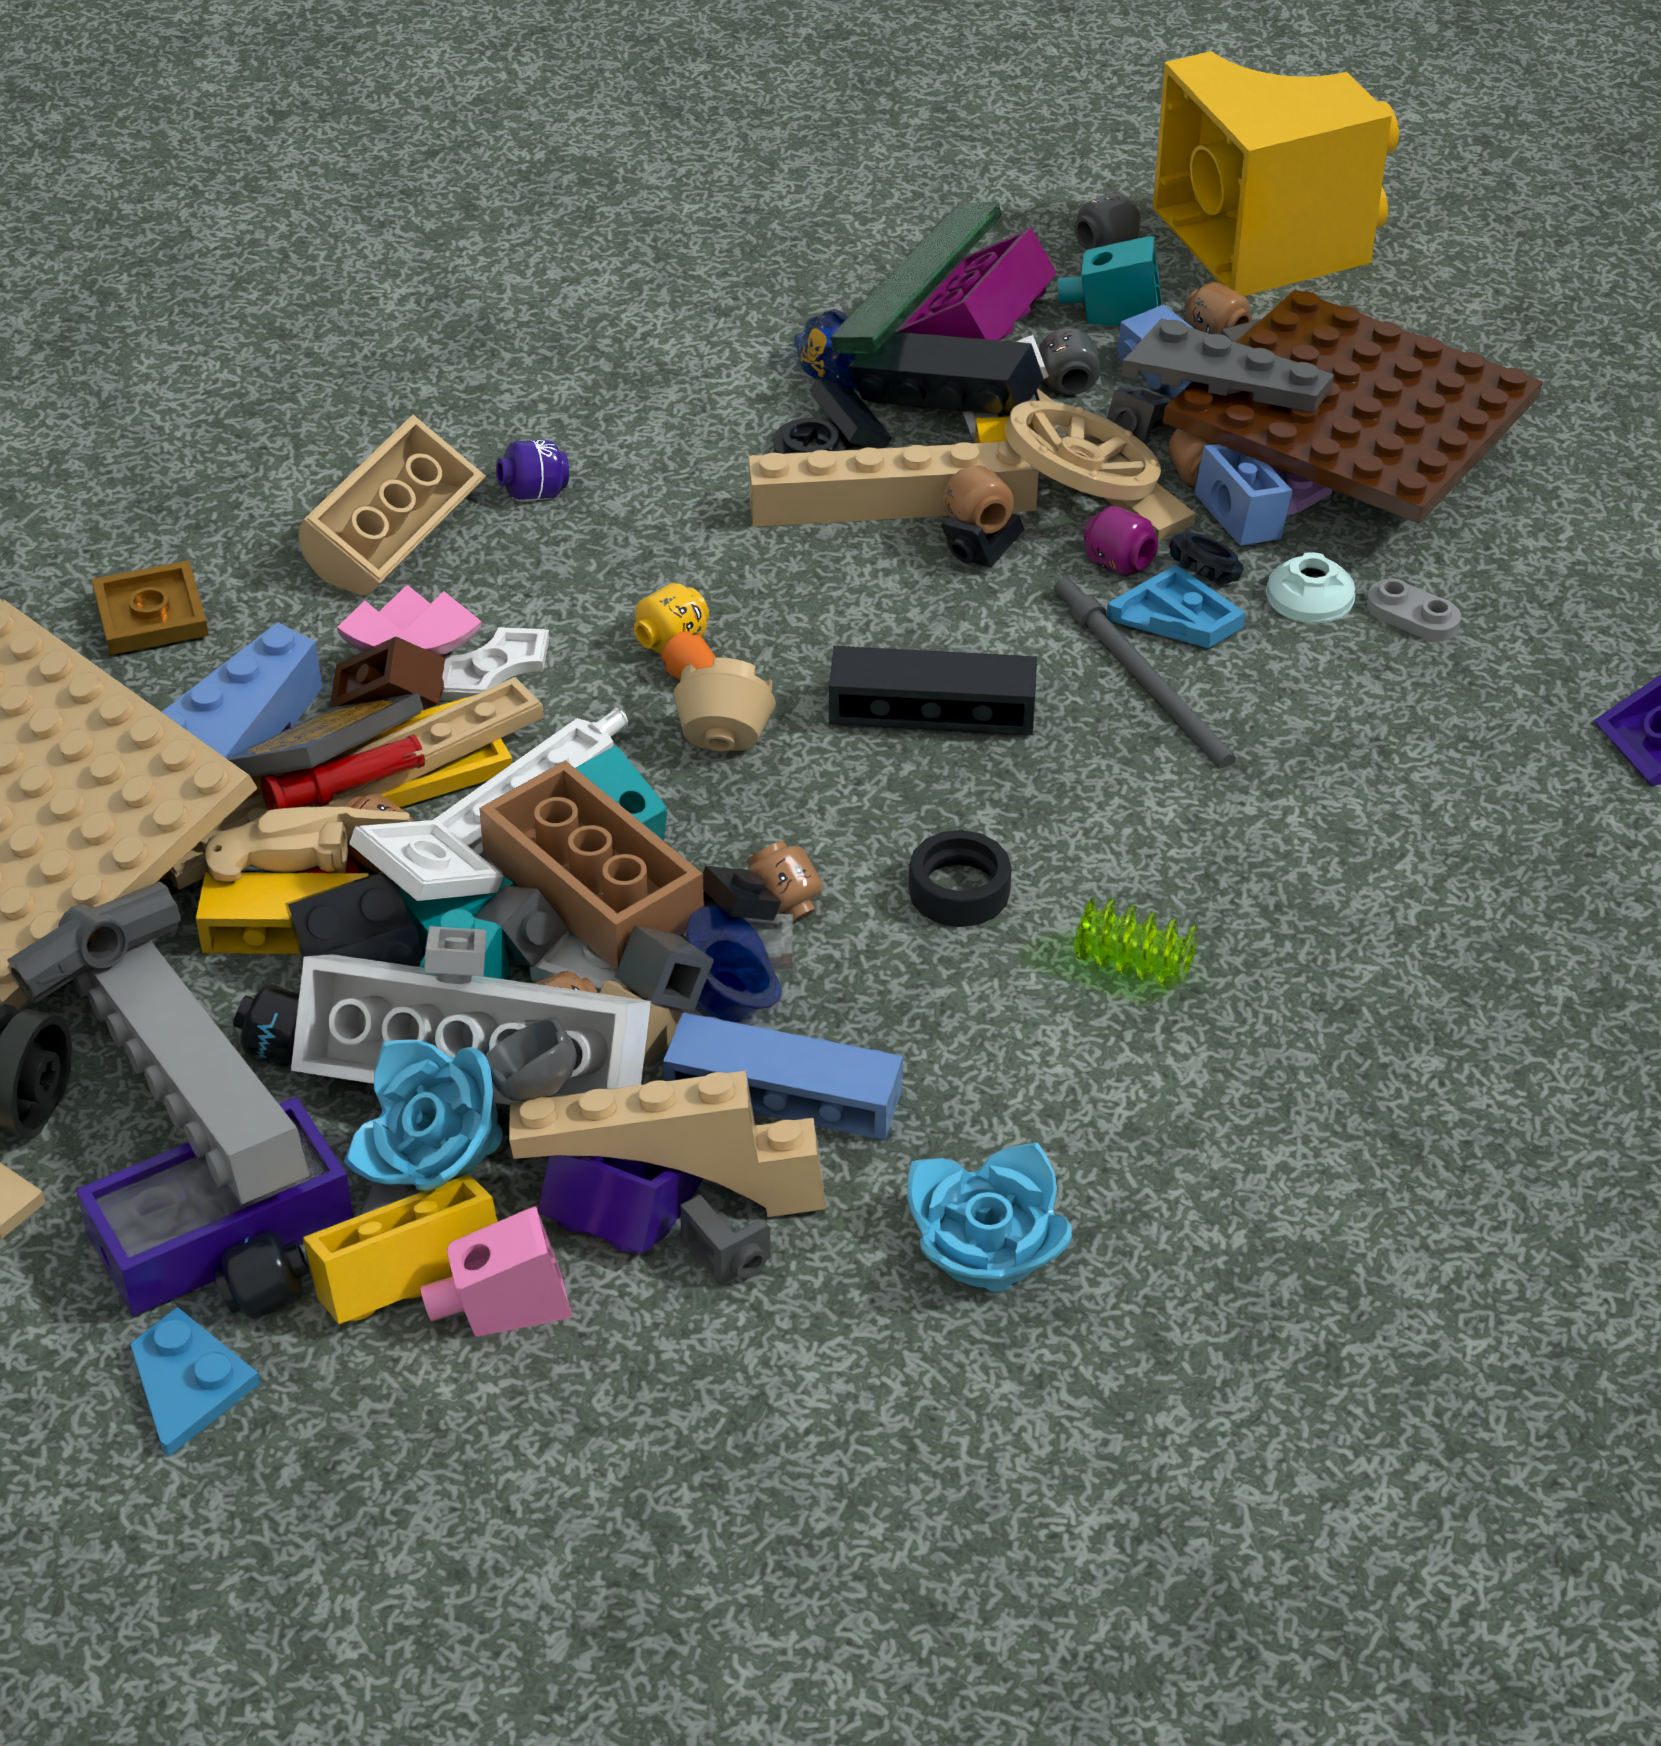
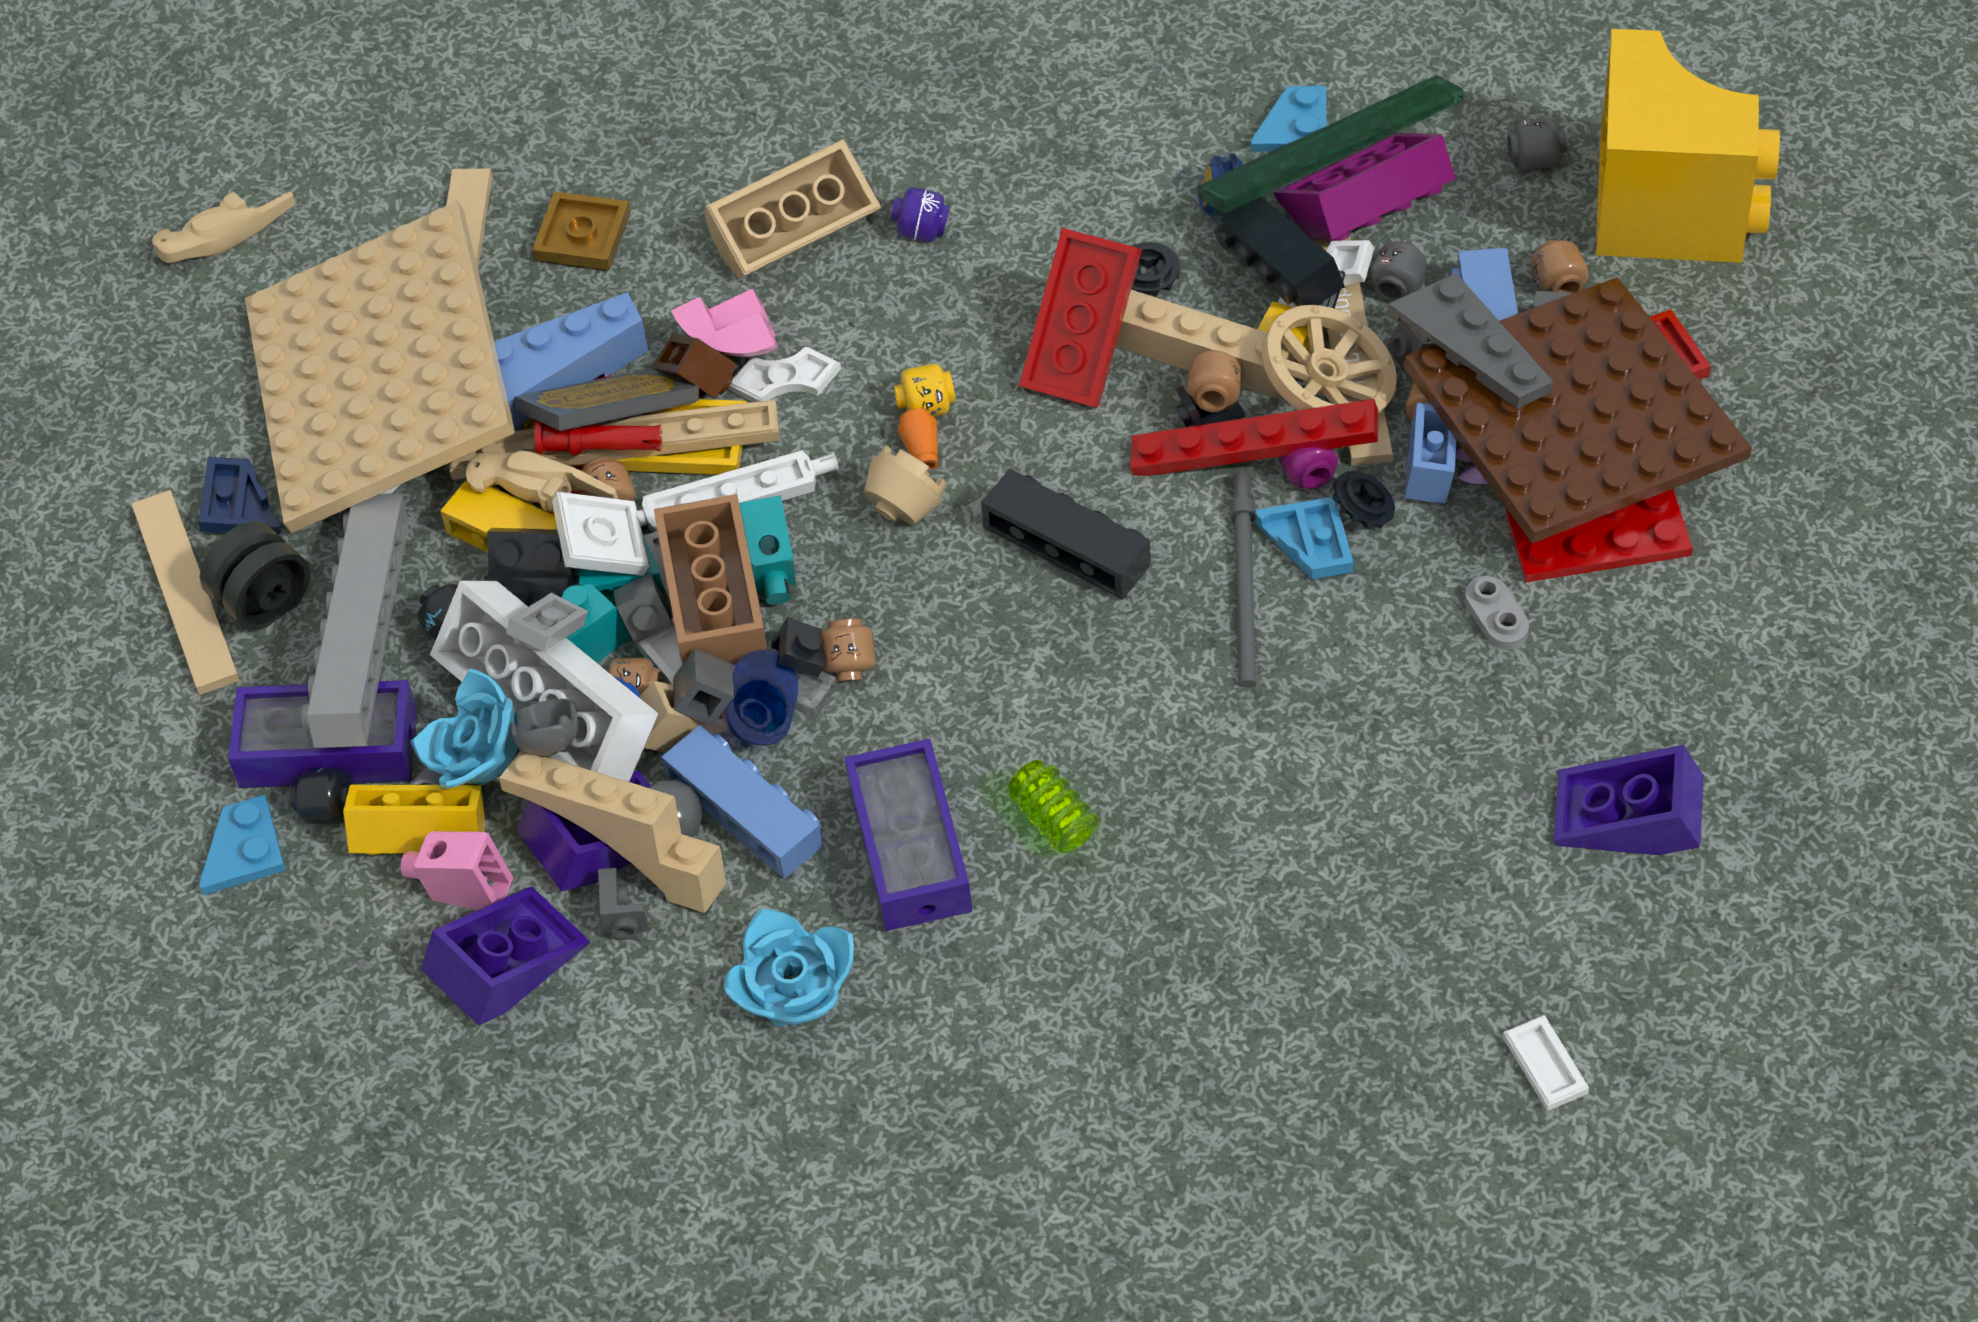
camera: 35 degrees right, 10 degrees up
(65, 951) = (331, 505): dark grey piece -> none
(617, 1354) = (500, 953): none -> dark purple slope
(799, 488) = (1080, 317): none -> red plate
(850, 277) = (1294, 115): none -> dark azure wing
(850, 414) = (1194, 254): black tile -> none
(955, 906) = (976, 725): black tyre -> none
(1006, 1029) = (908, 834): none -> brick
(1058, 538) = (1254, 438): none -> red plate
(1115, 282) = (1490, 212): teal torso -> none
(1307, 597) = (1431, 573): light aqua piece -> none
(1475, 508) = (1627, 537): none -> red plate

